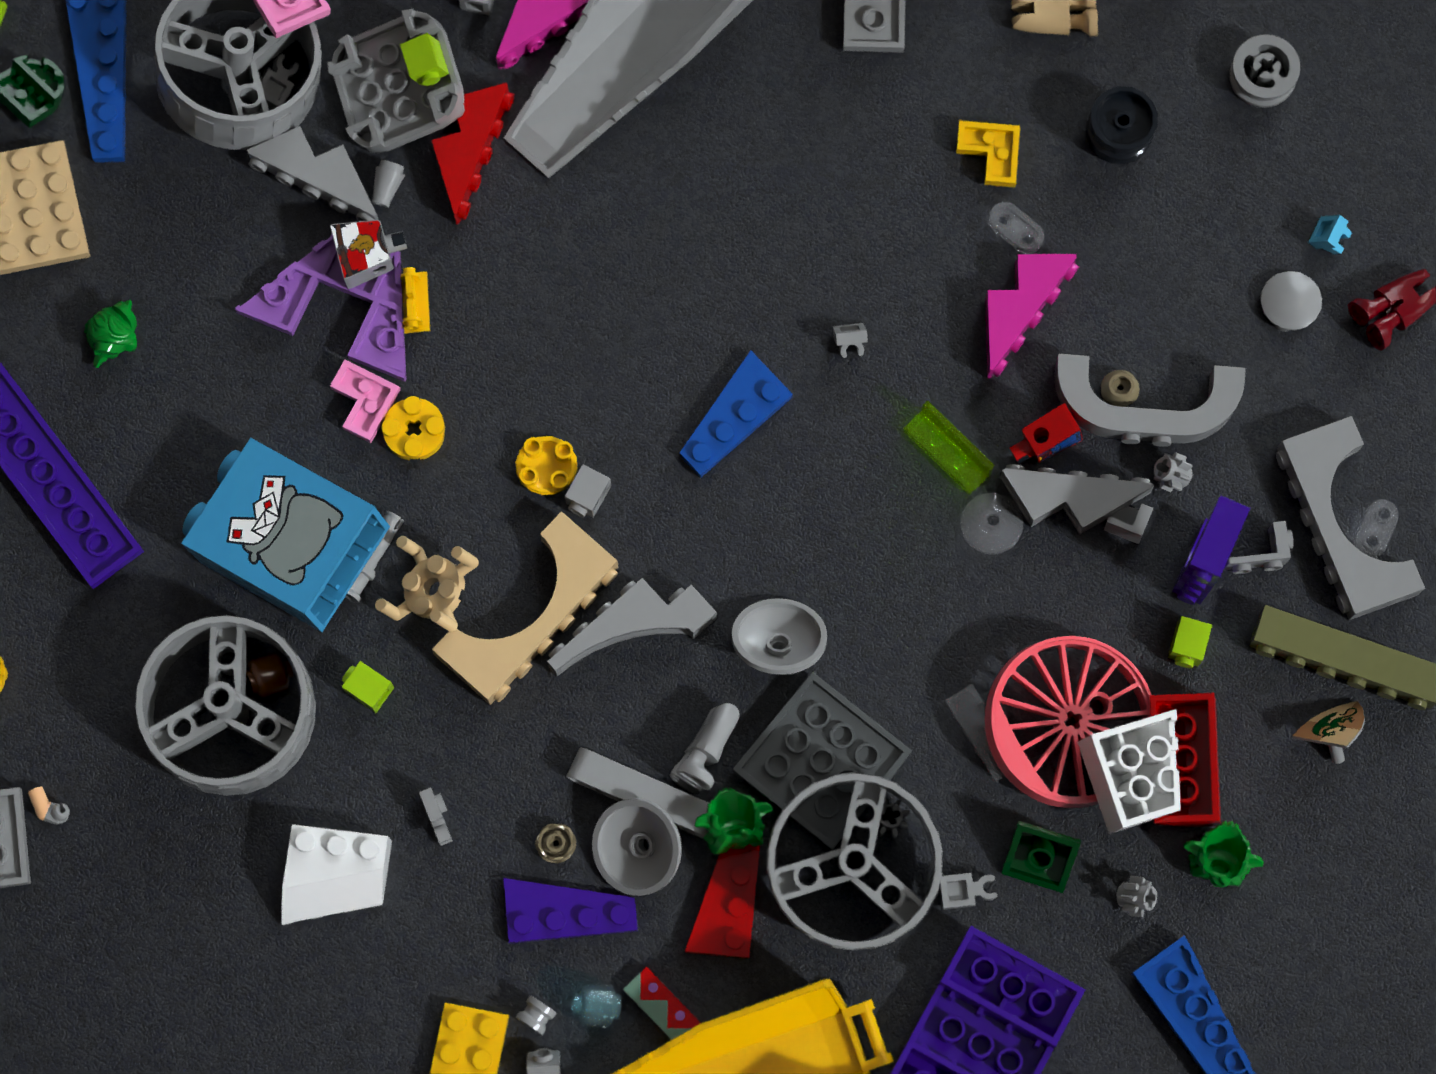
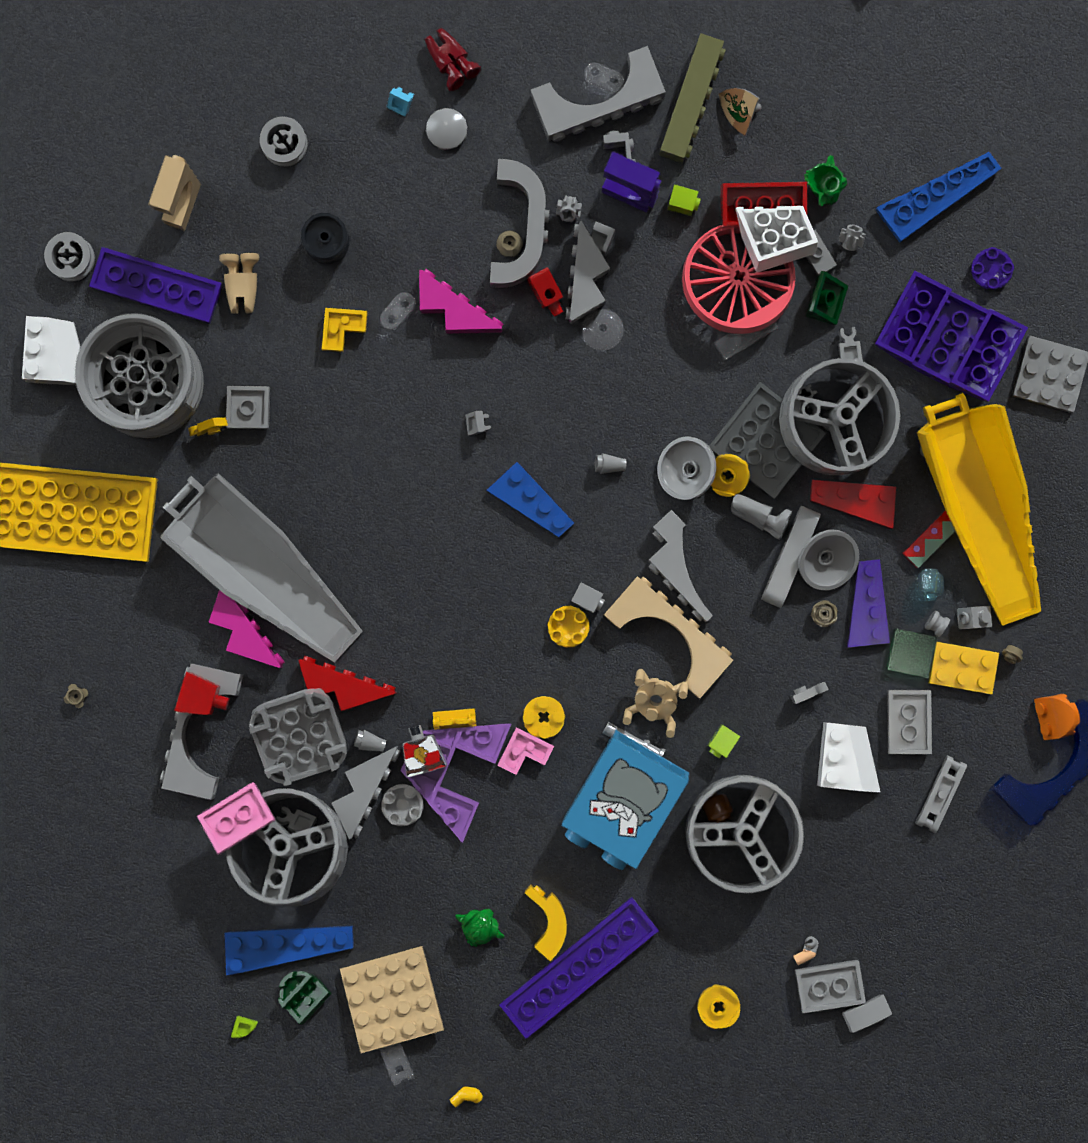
camera: 90 degrees left, 10 degrees up
(117, 439) = (554, 936): none -> yellow arch
(274, 1016) = (941, 794): none -> light grey plate
(293, 228) = (402, 805): none -> light grey dish
(386, 969) = (909, 722): none -> light grey plate
(424, 59) = (288, 715): lime brick -> none
(492, 977) = (911, 653): none -> clear green tile
(733, 821) = (811, 496): green hair -> none
(771, 715) = (740, 477): none -> yellow plate
(788, 527) = (607, 463): none -> light grey cone
(949, 448) = (553, 357): clear neon green panel -> none
(1109, 848) = (822, 259): none -> light grey plate

